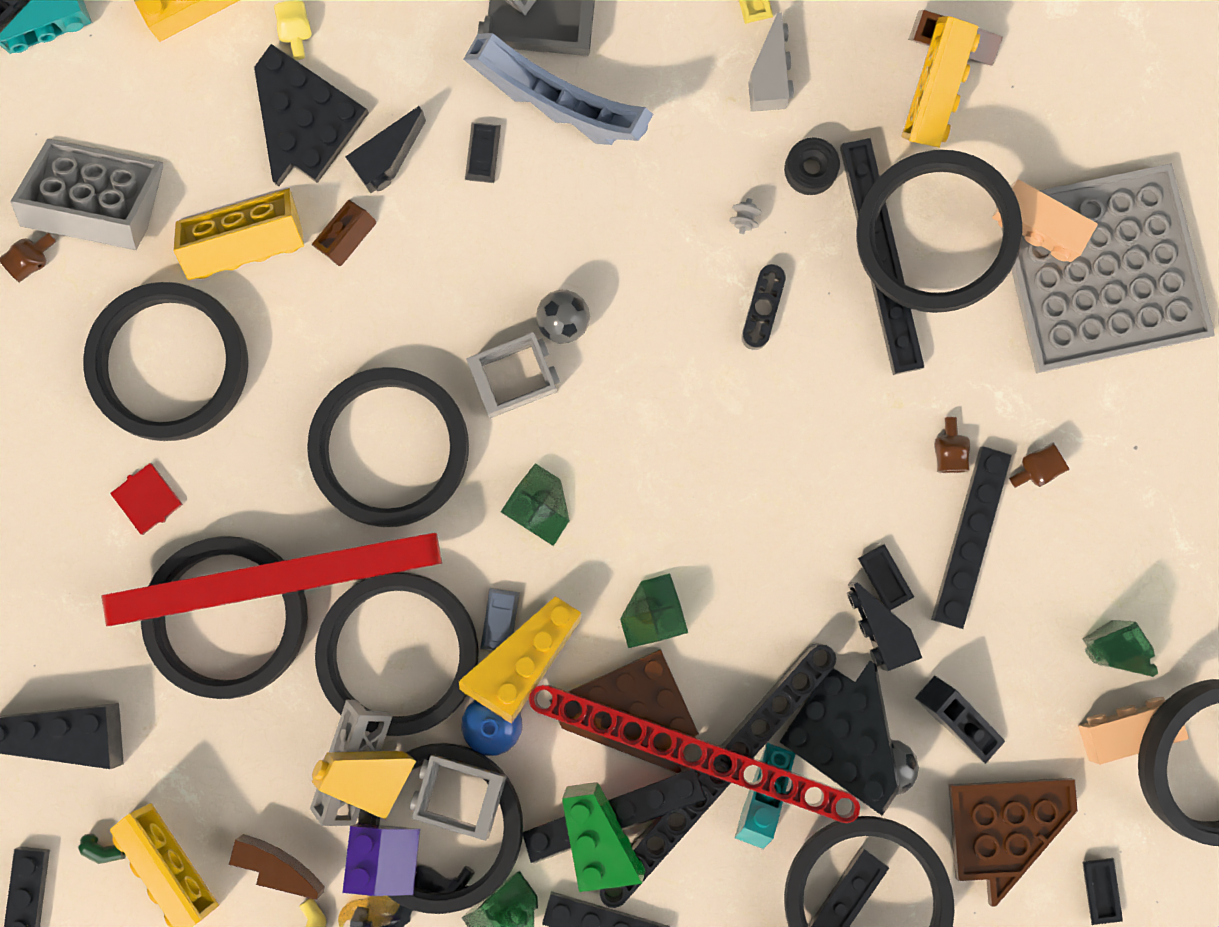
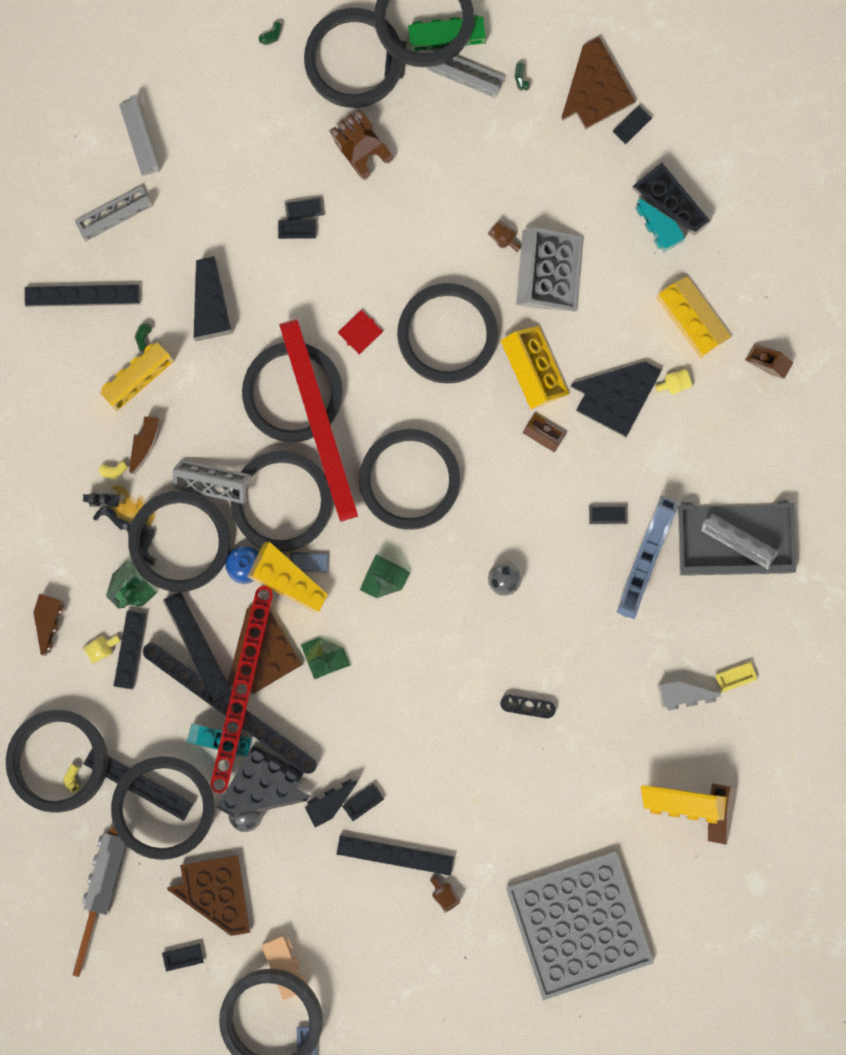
camera: 85 degrees right, 0 degrees up
(364, 778) = (205, 492): yellow slope -> none
(381, 860) = (157, 508): slope -> none
(382, 156) = (597, 452): black slope -> none
(479, 360) = (452, 535): light grey window -> none
(489, 807) = (196, 527): light grey window -> none
(597, 842) = (181, 637): green wedge -> none
(745, 216) = (585, 688): light grey wheel -> none
(818, 150) = (634, 728): black tyre -> none
(895, 319) = (570, 779): black plate -> none
(924, 163) = (593, 766): black tyre -> none
(952, 449) = (450, 837): reddish brown piece -> none
(960, 718) = (279, 857): black slope -> none
(1051, 223) = (601, 879): light nougat brick -> none
(1121, 647) = (333, 953): clear green slope -> none

